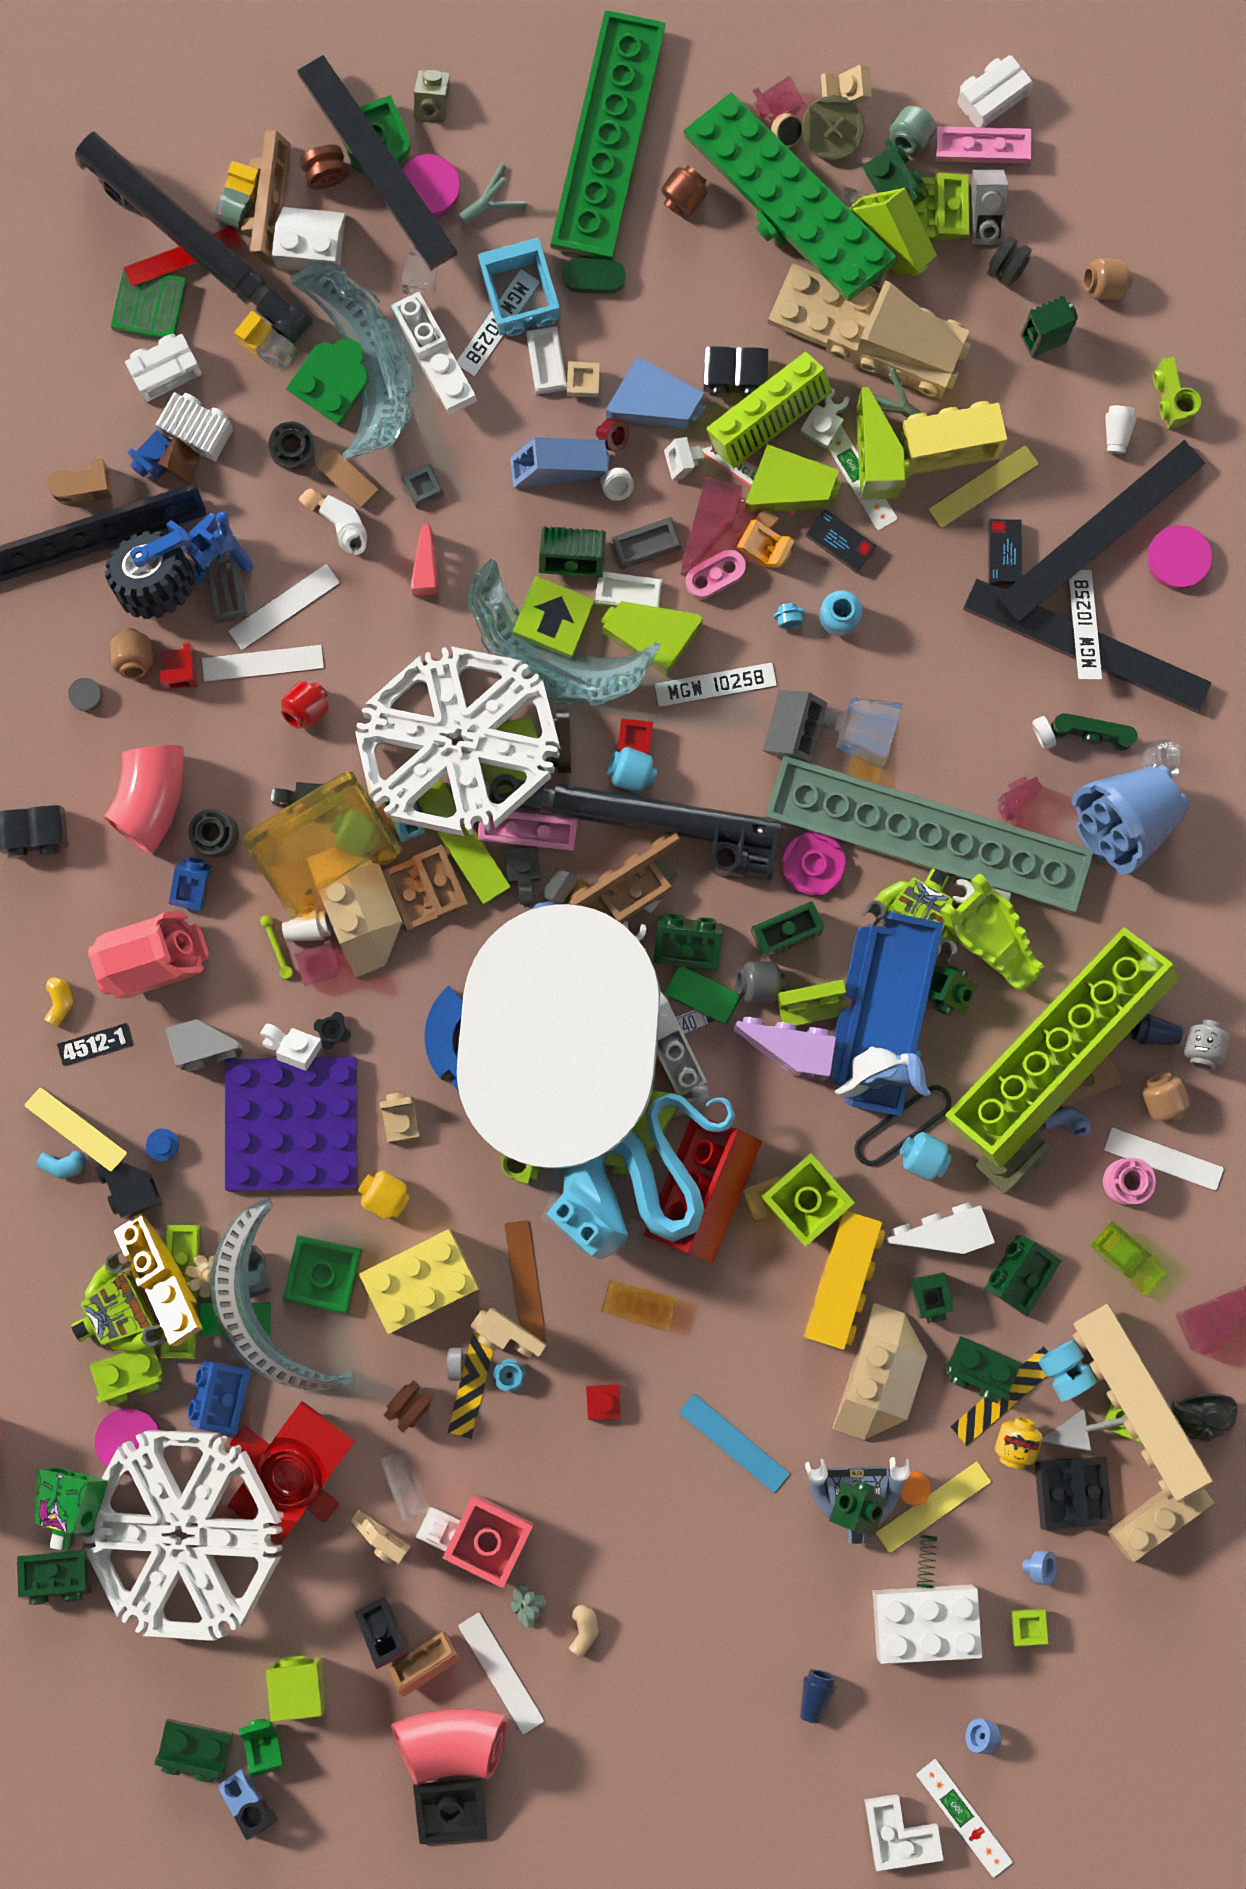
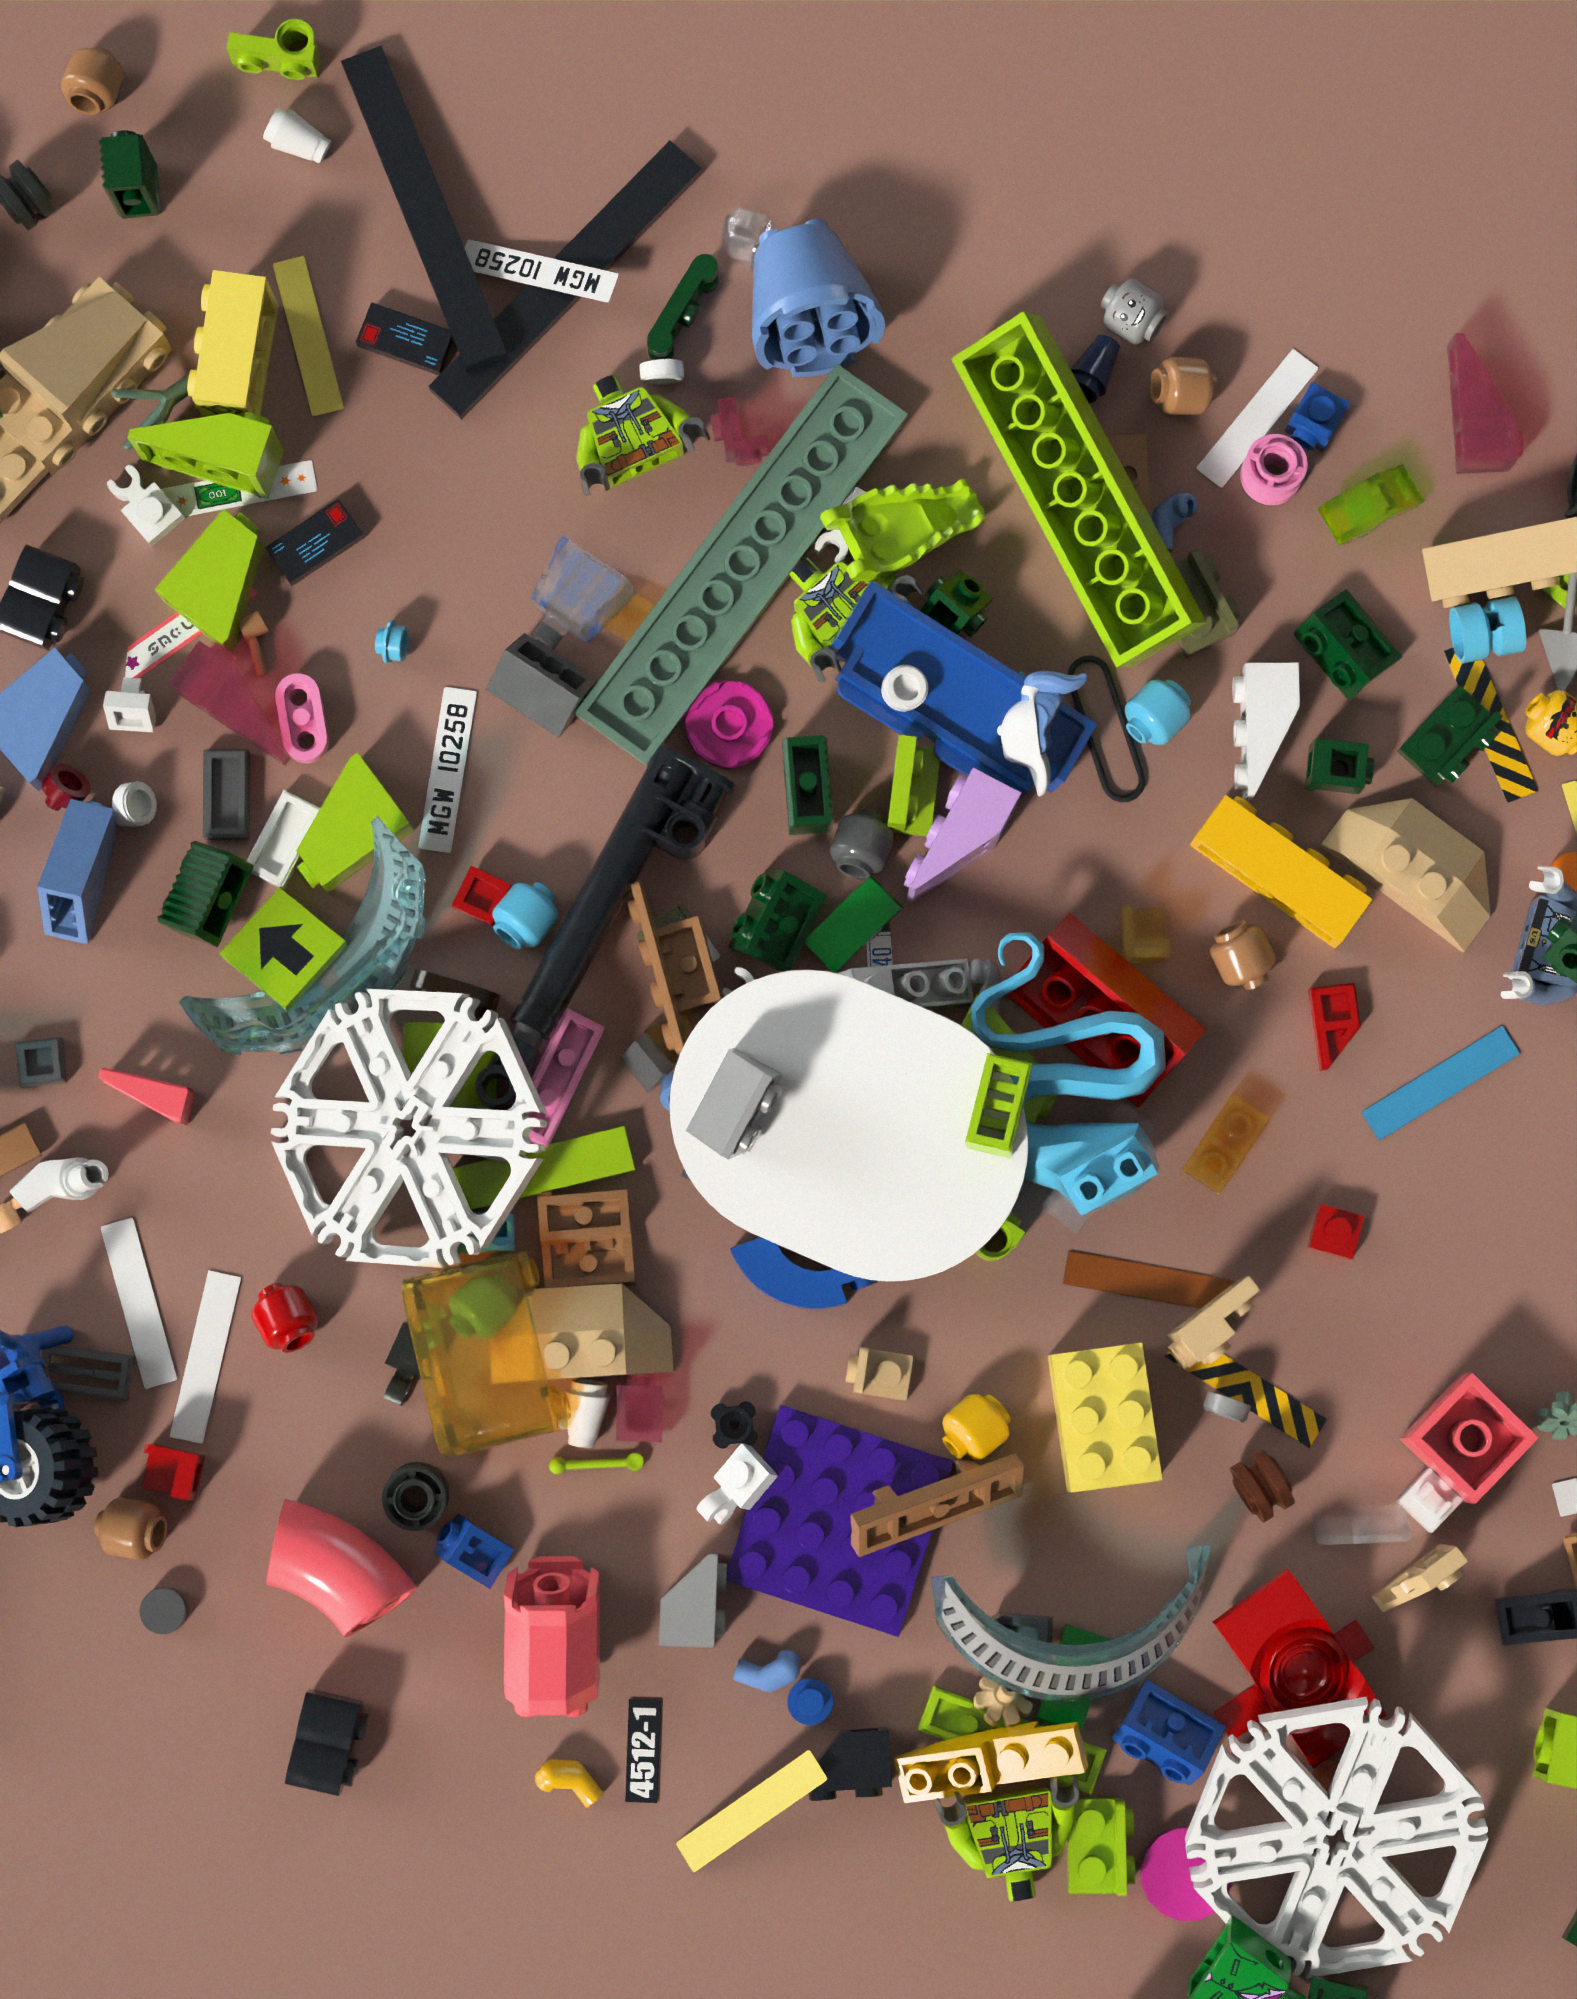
camera: 70 degrees left, 0 degrees up
(64, 1167) = (796, 1845): medium azure arm -> none
(171, 1113) = (771, 1676): none -> medium blue arm
(320, 1184) = (937, 1504): none -> medium nougat hinge
(322, 1274) = (1051, 1544): green tile -> none
(516, 1369) = (1273, 1335): medium azure plate -> none
(522, 869) = (604, 1103): pearl dark grey plate -> none
(543, 951) = (734, 1104): none -> light grey slope
(602, 1119) = (1010, 1128): none -> lime slope
(751, 1352) = (1334, 1020): none -> red tile
(765, 545) = (287, 639): light orange bracket -> none
(769, 410) = (108, 571): lime brick -> none
(774, 1272) = (1242, 955): none -> medium nougat head
(807, 1200) = (1167, 879): lime slope -> none
(845, 604) = (406, 562): medium azure head -> none
(877, 972) = (904, 688): none -> white tile
(990, 726) = (631, 435): none -> torso
(1178, 1200) = (1316, 418): none -> blue bracket
(1179, 557) = (492, 122): dark pink tile -> none

